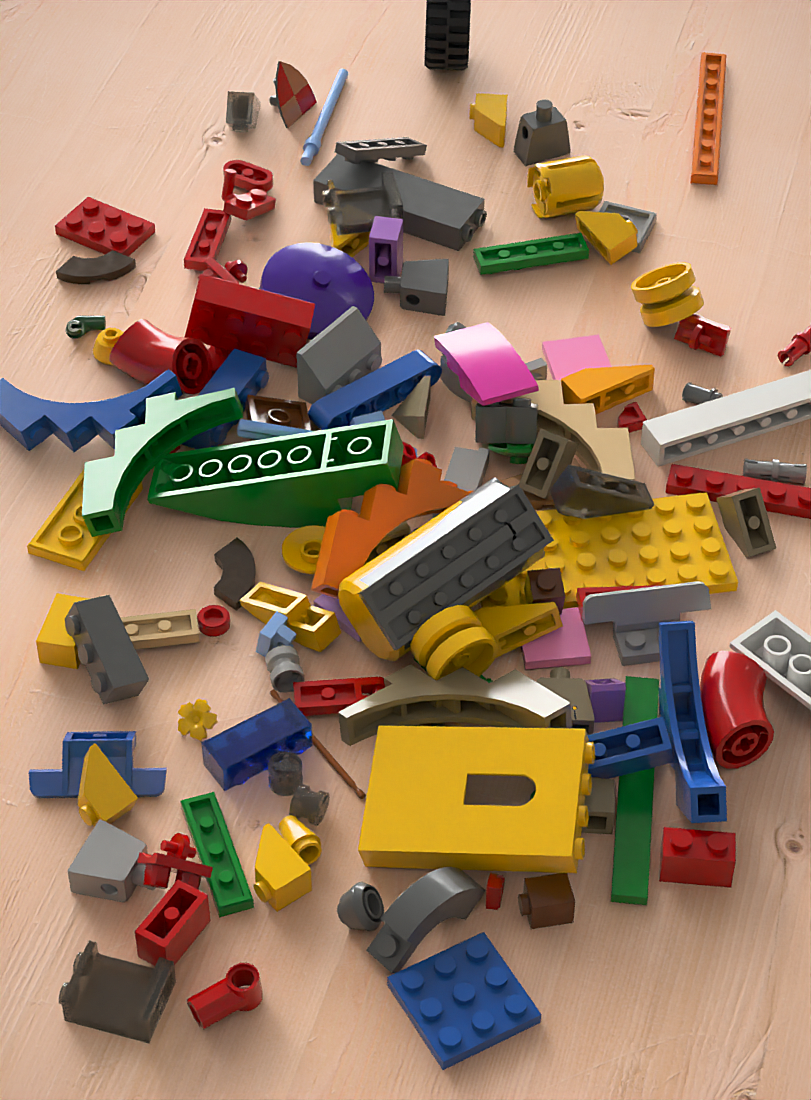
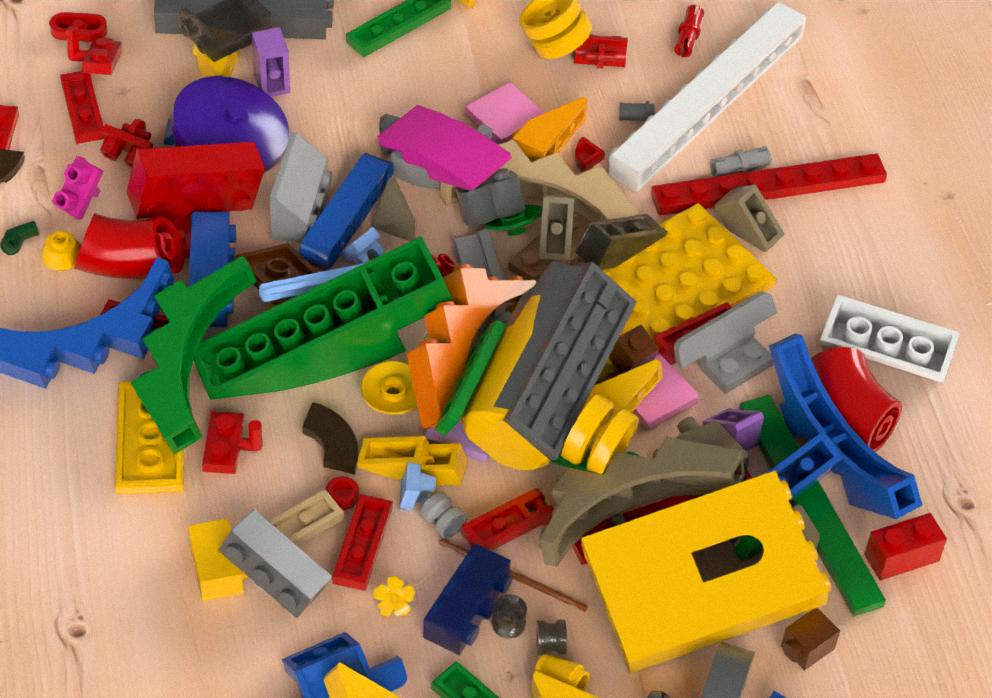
camera: 30 degrees left, 5 degrees up
(145, 540) = (226, 440): none -> red plate
(158, 299) = (78, 188): none -> dark pink hips
(200, 665) = (362, 542): none -> red plate
(334, 575) = (470, 378): none -> green tile
(421, 286) = (321, 87): dark grey torso -> none
(494, 891) = (761, 647): red tile -> none

